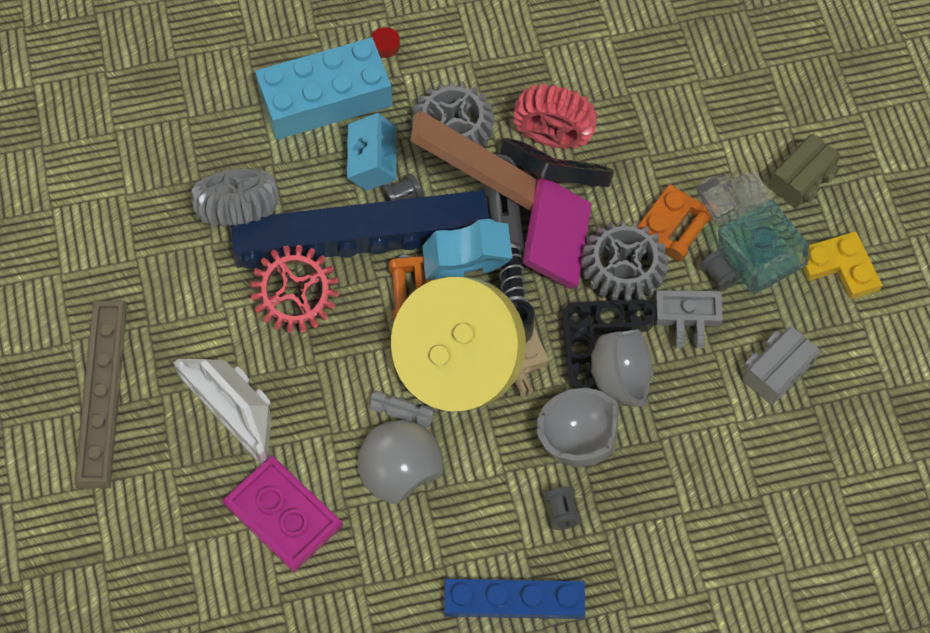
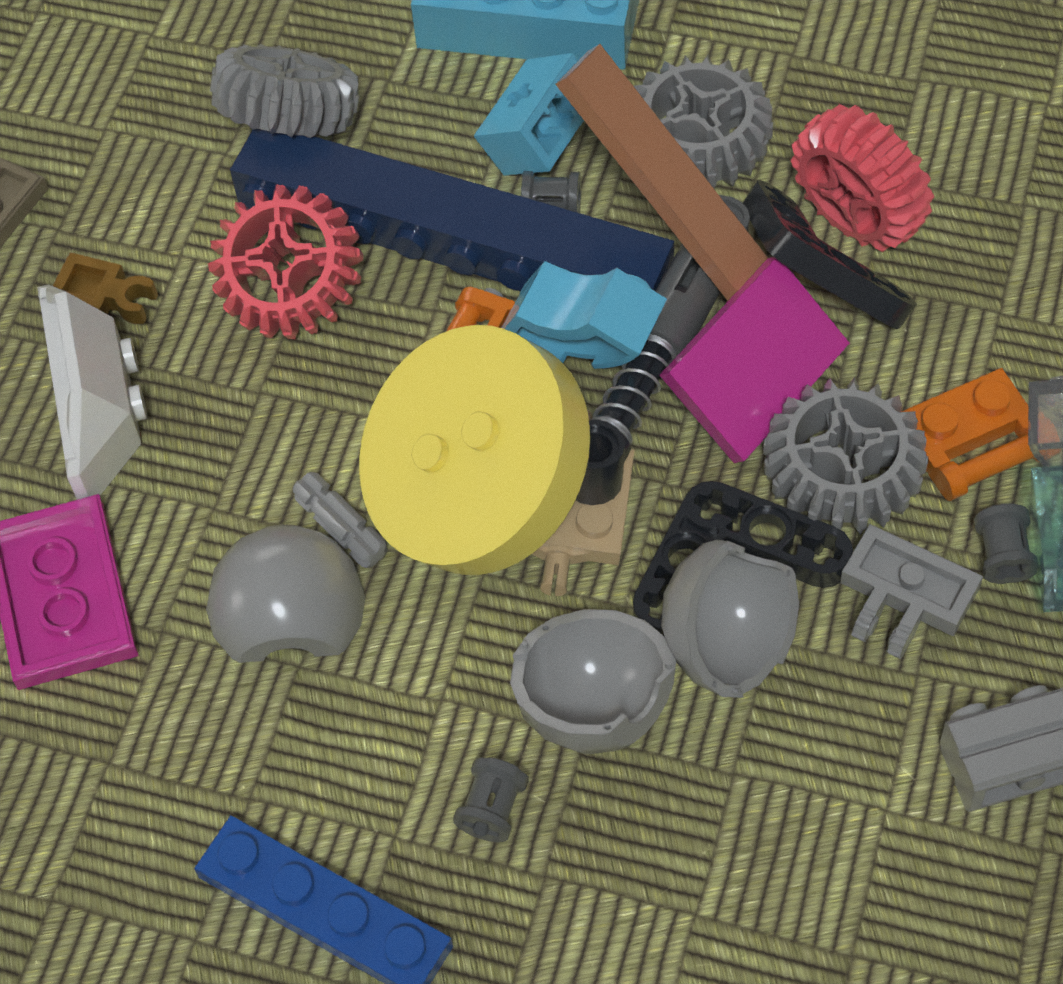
camera: 35 degrees right, 5 degrees down
(197, 345) = (105, 286): none -> pearl gold plate

